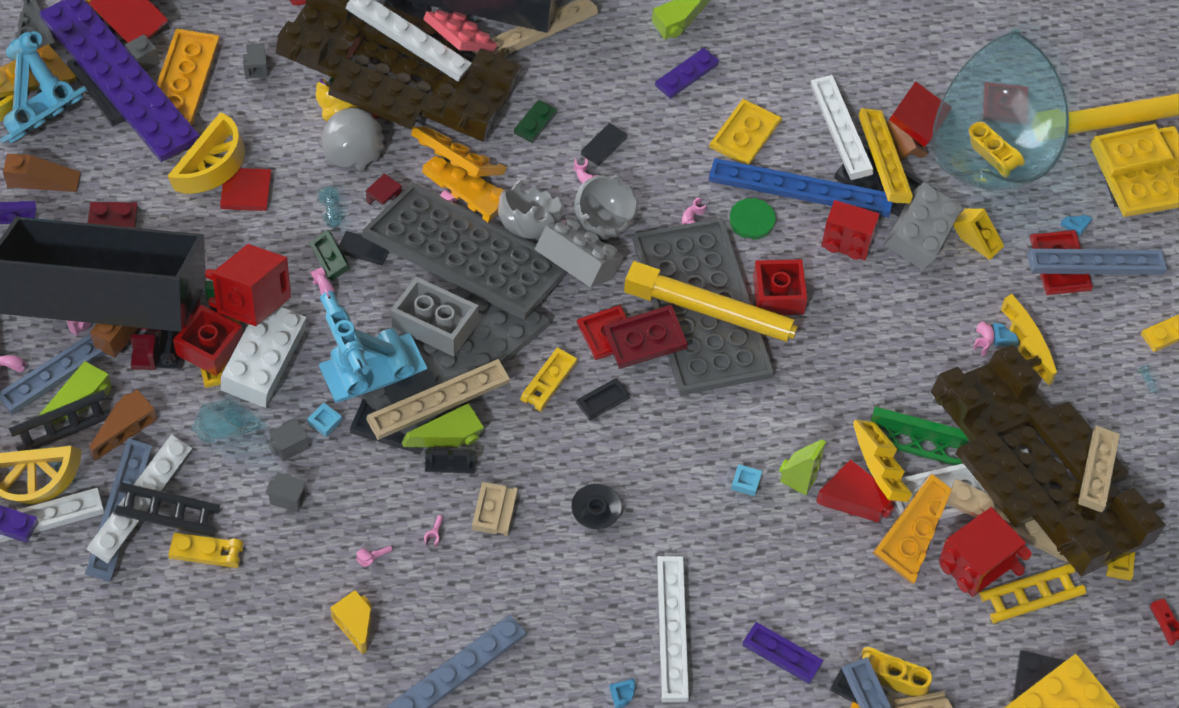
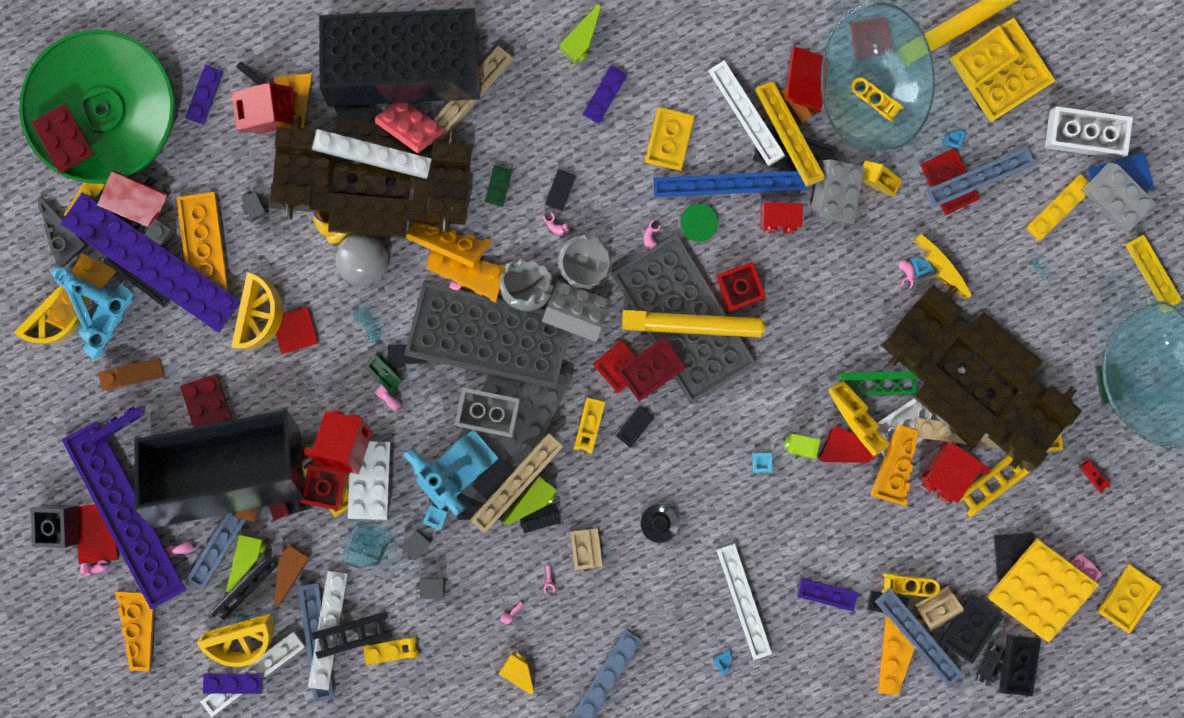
camera: 15 degrees left, 30 degrees up
(383, 190) = (404, 301): dark red panel -> none
(1099, 469) = (1022, 376): tan plate -> none

